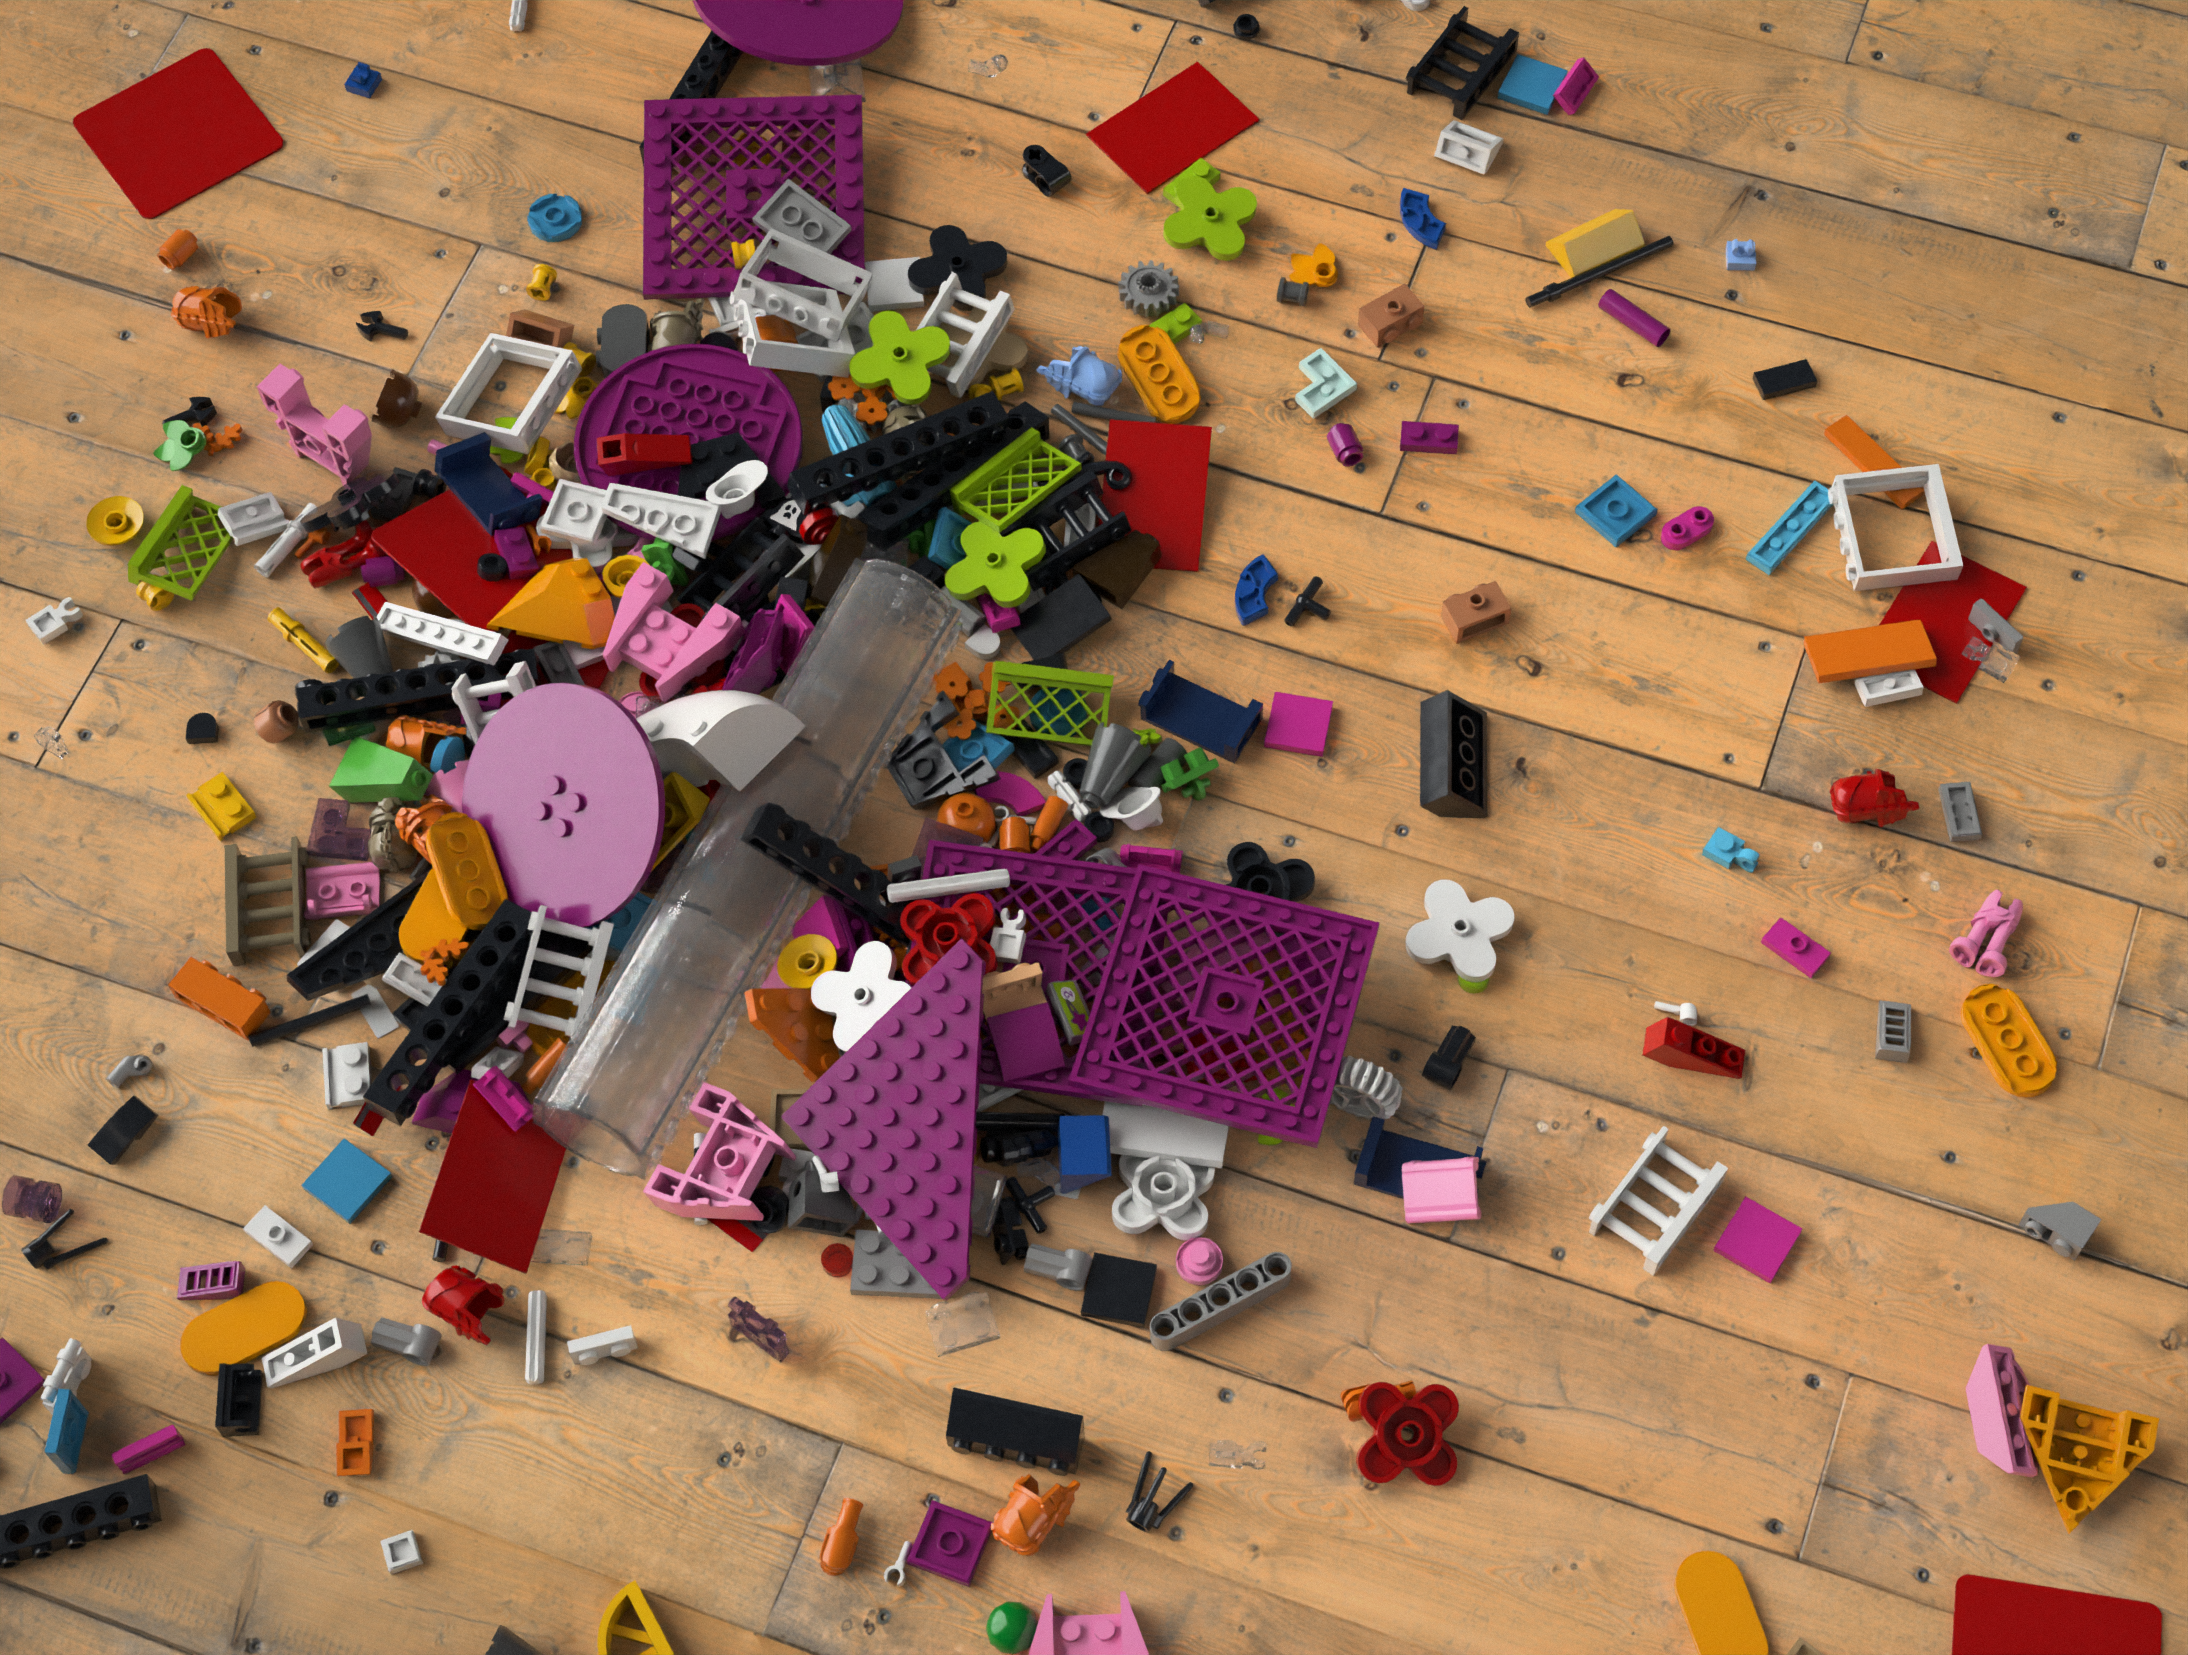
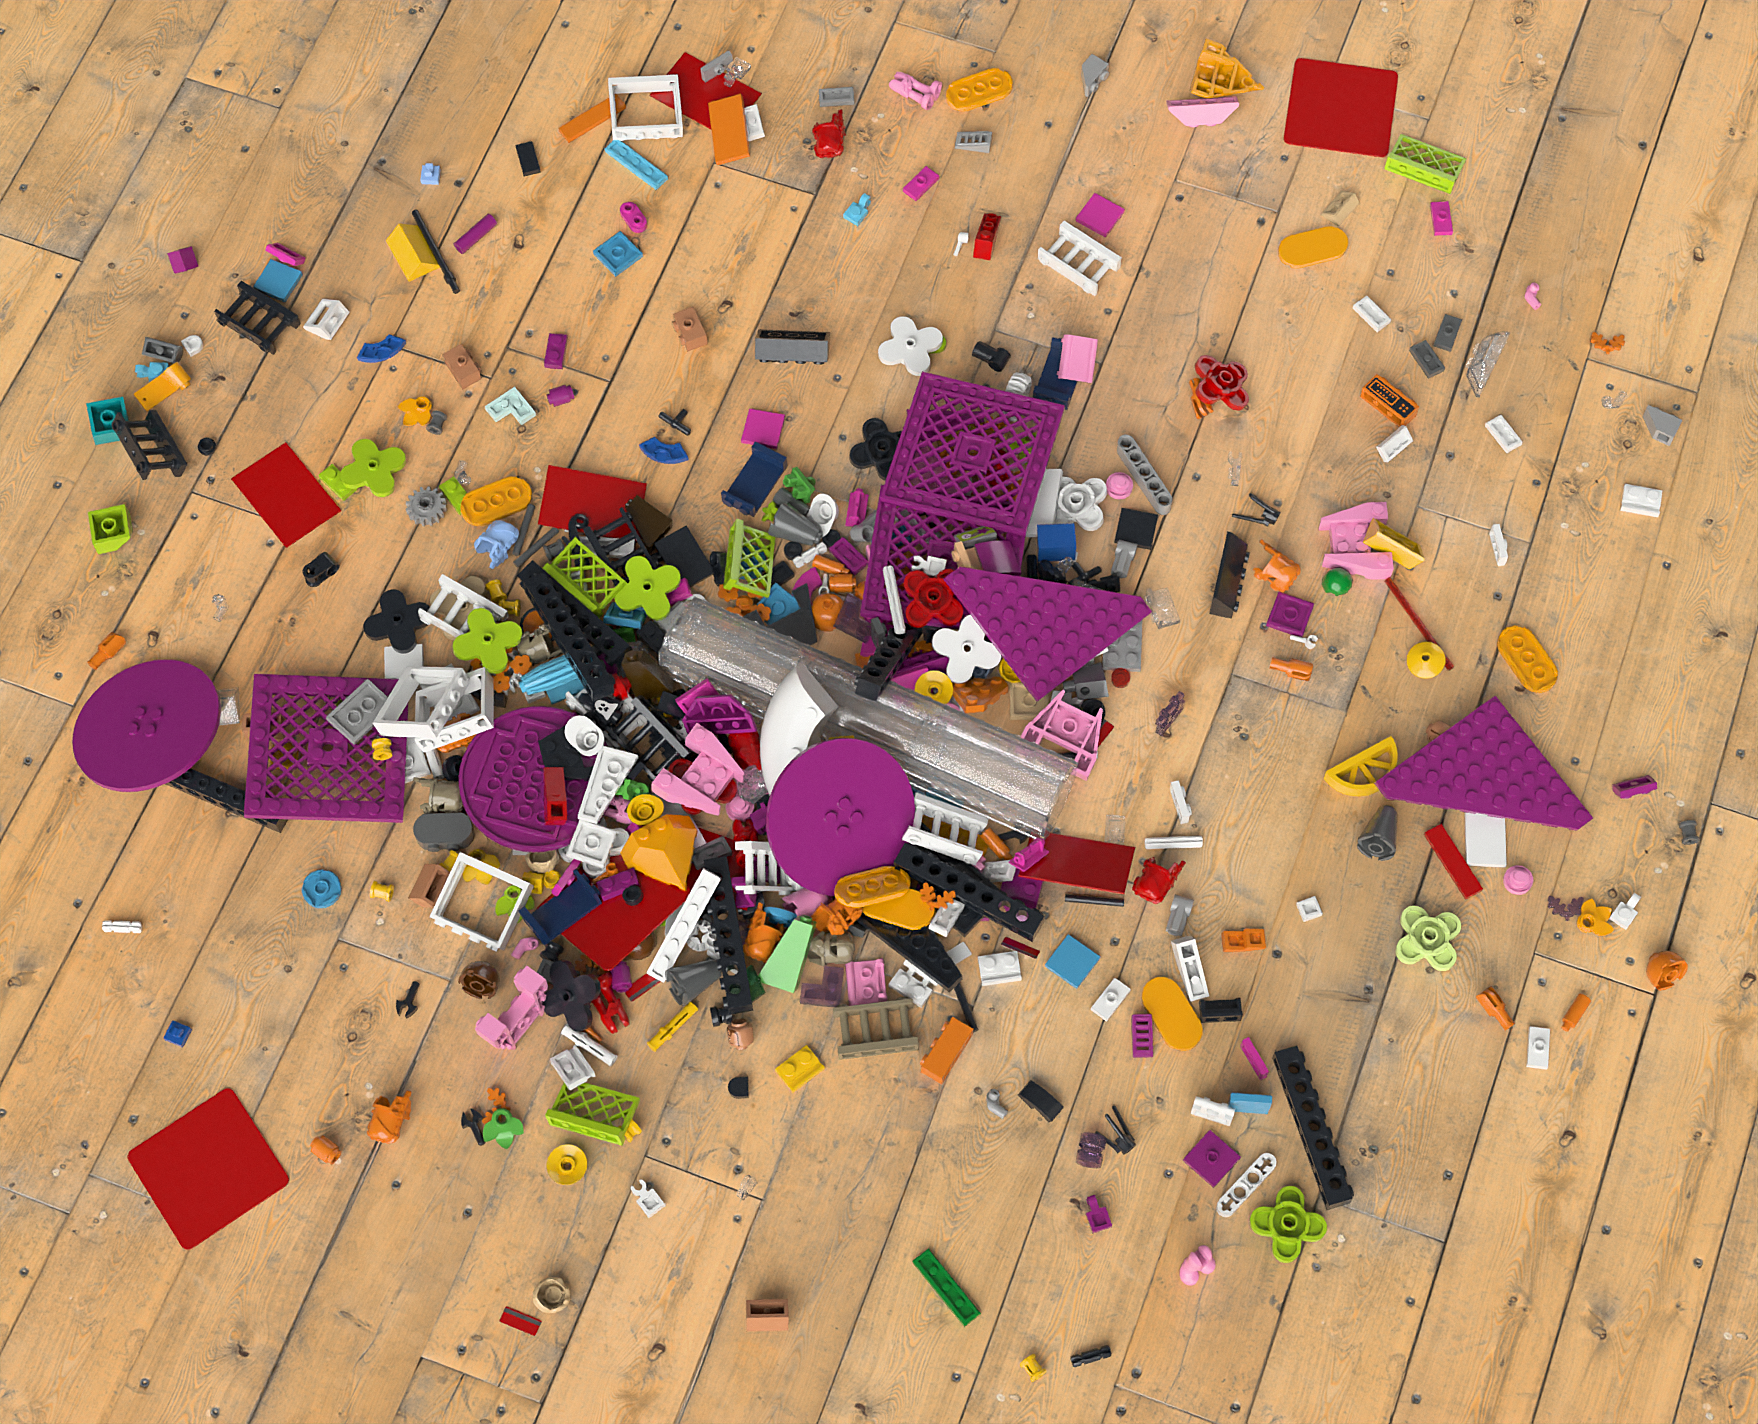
camera: 90 degrees left, 5 degrees up
(828, 1181) = (1083, 671): white hand -> none

